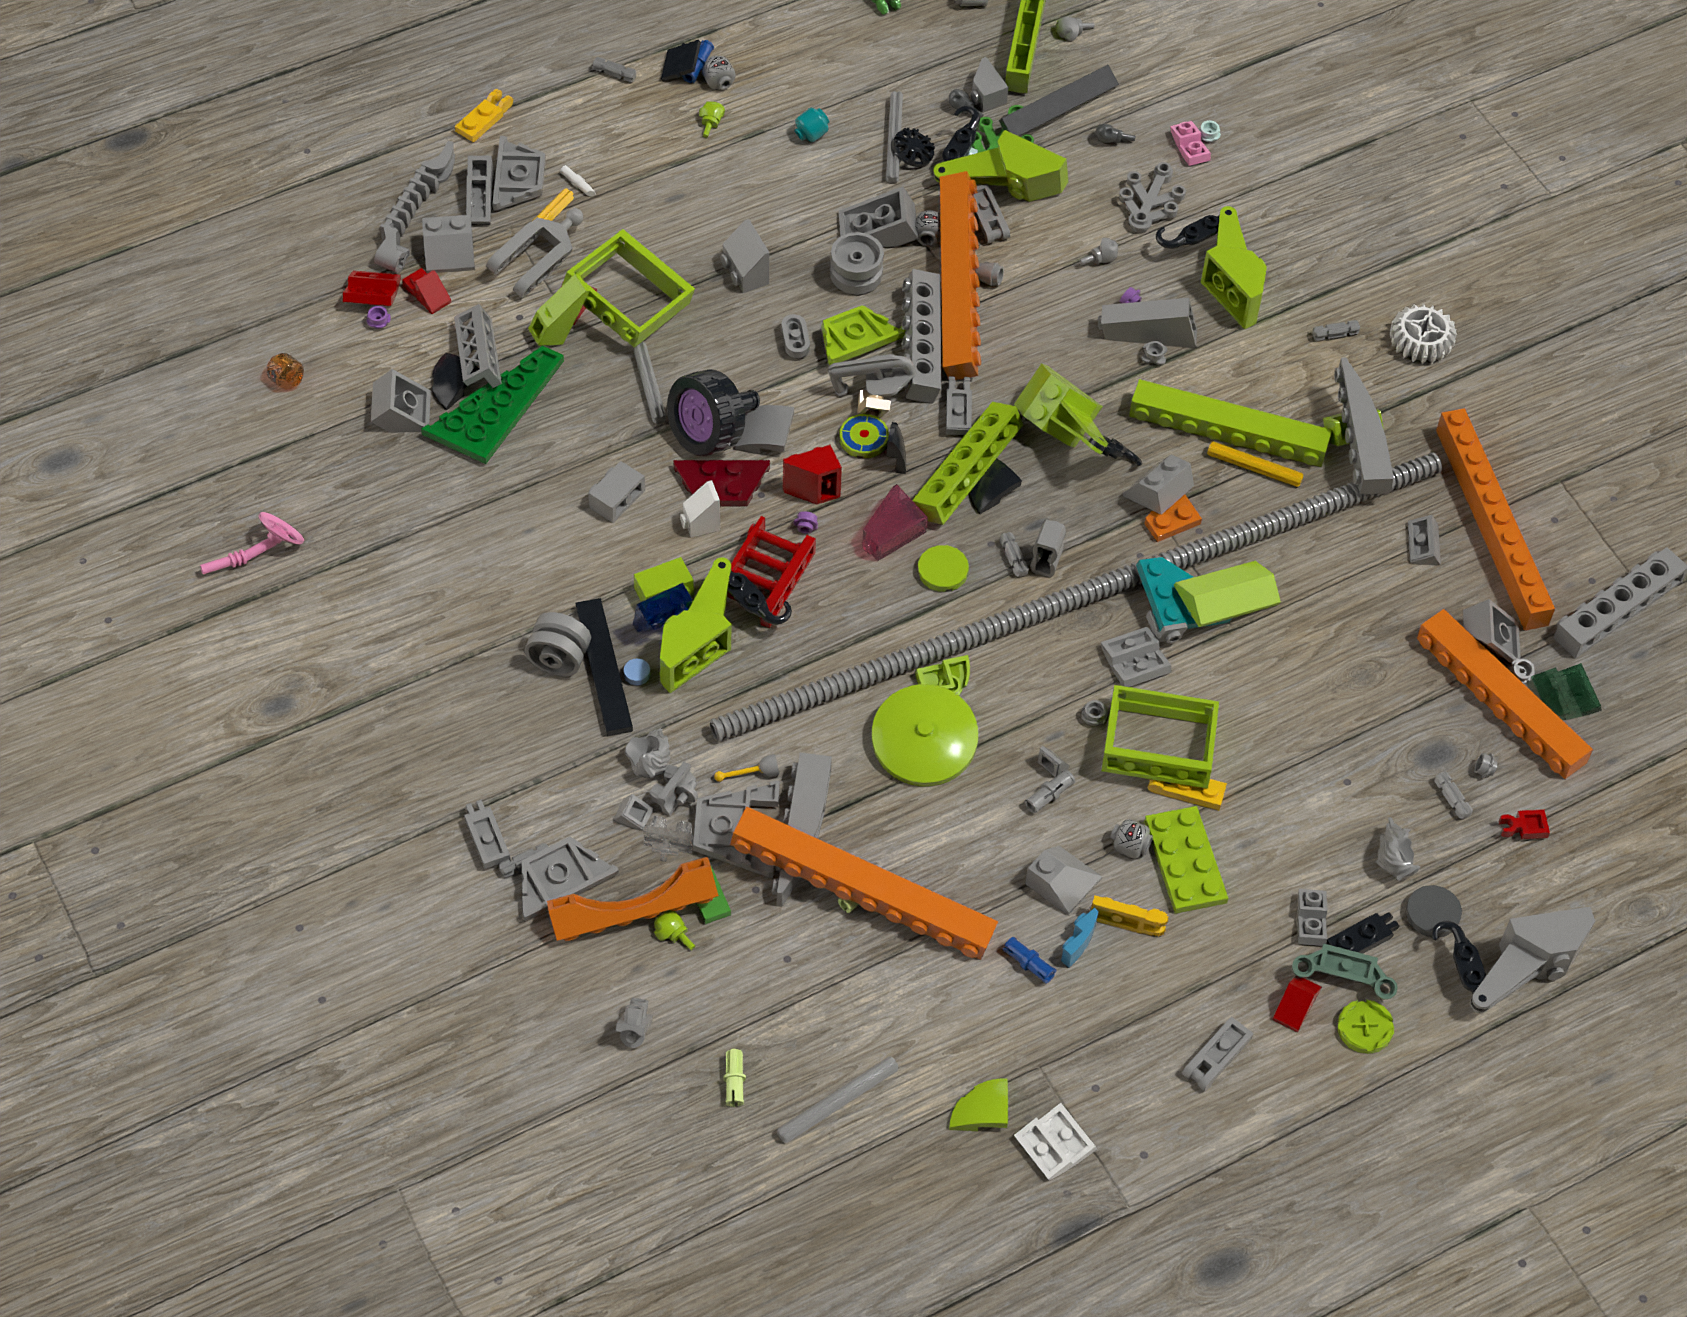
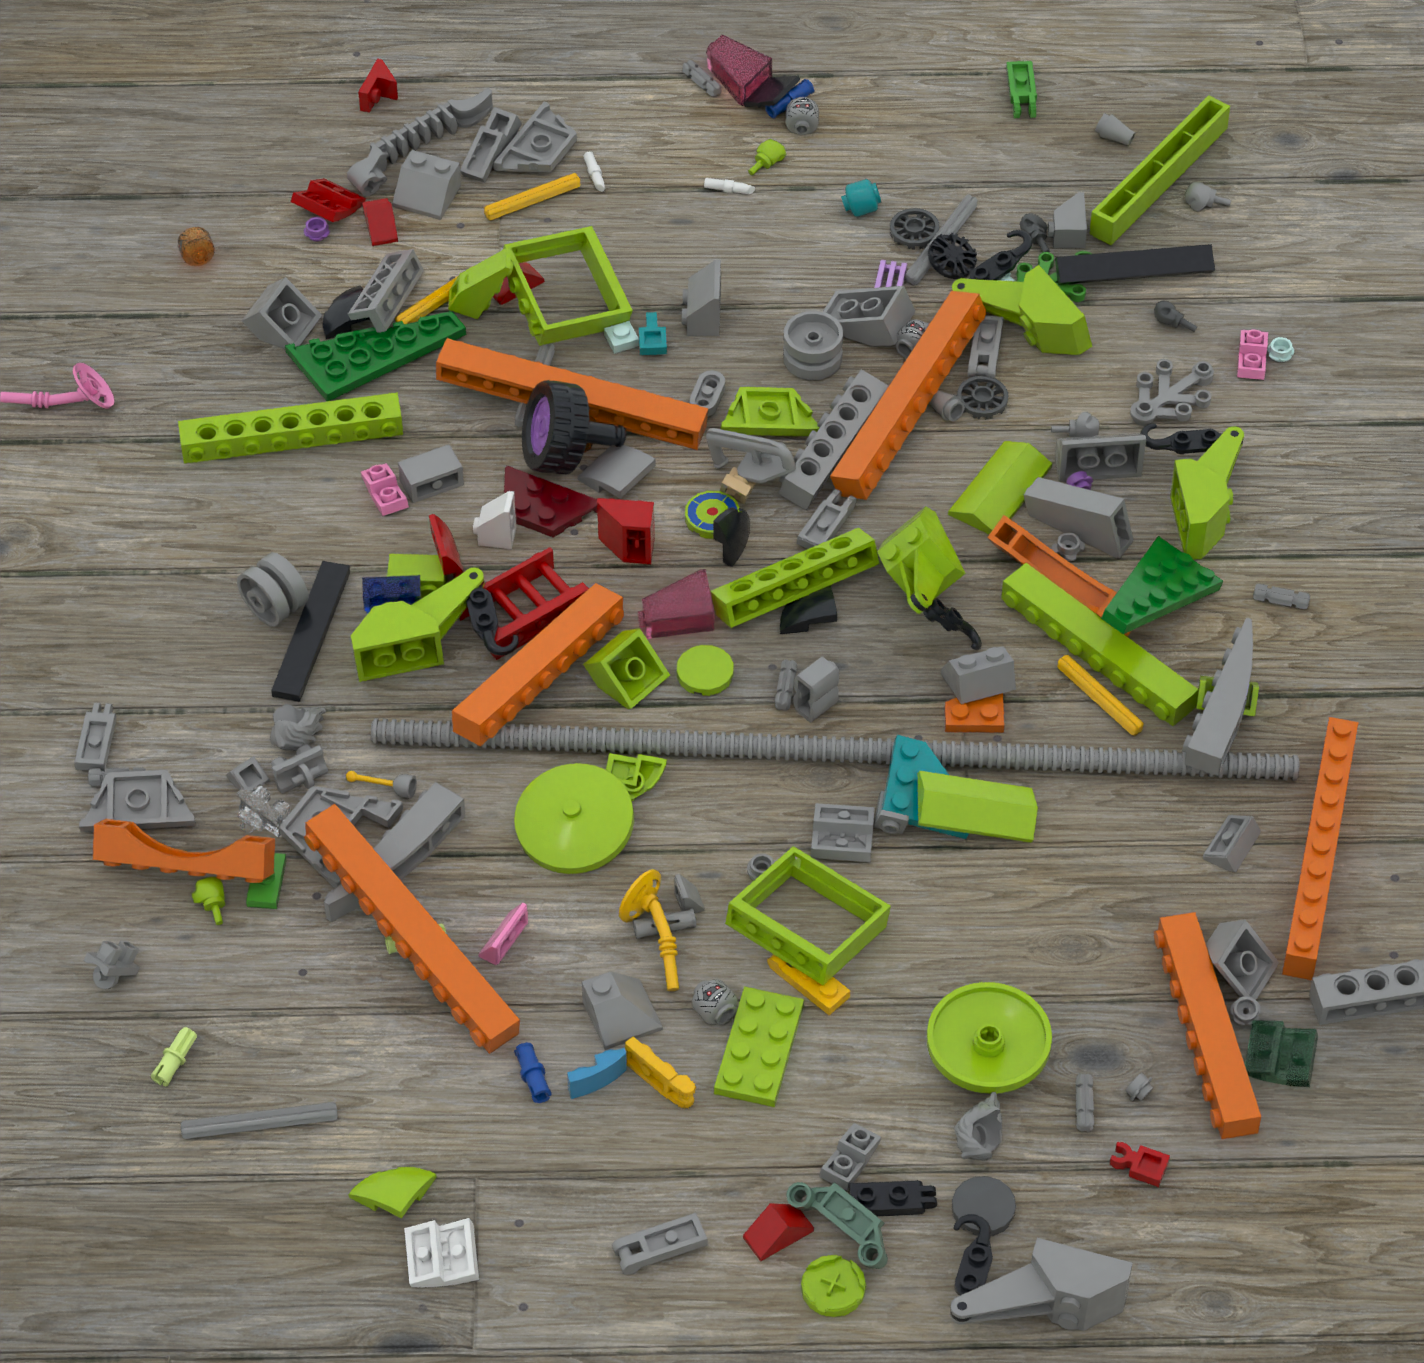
camera: 30 degrees right, 5 degrees down
(351, 170) = (377, 84): none -> red slope
(484, 116) = (545, 78): yellow hinge -> none
(488, 489) = (290, 427): none -> lime brick
(519, 339) = (426, 304): none -> yellow axle
(552, 231) = (499, 204): light grey piece -> none
(583, 521) = (384, 489): none -> bright pink slope
(636, 671) = (338, 648): light blue tile -> none
(639, 49) = (738, 67): none -> clear pink slope
(654, 379) = (607, 401): none -> orange brick
(680, 554) = (445, 547): none -> red slope
(693, 314) = (621, 337): none -> light aqua plate
(694, 154) = (728, 186): none -> white piece
(720, 306) = (652, 338): none -> teal plate
(806, 522) = (596, 573): medium lavender plate -> none
(817, 618) = (537, 664): none -> orange brick
(866, 135) = (914, 227): none -> dark grey wheel
(873, 176) = (892, 269): none -> lavender tile
(883, 591) = (627, 668): none -> lime slope
(930, 855) = (505, 935): none -> bright pink slope
(1011, 255) = (983, 396): none -> dark grey wheel
(1031, 778) = (642, 898): none -> yellow dish
(1071, 324) = (1000, 486): none -> lime slope
(1131, 368) = (1027, 549): none -> orange arch
(1134, 269) = (1101, 456): none -> light grey slope
(1252, 357) = (1158, 586): none -> green wing
(1358, 775) = (989, 1037): none -> lime dish
(1437, 337) = (1373, 627): white gear -> none

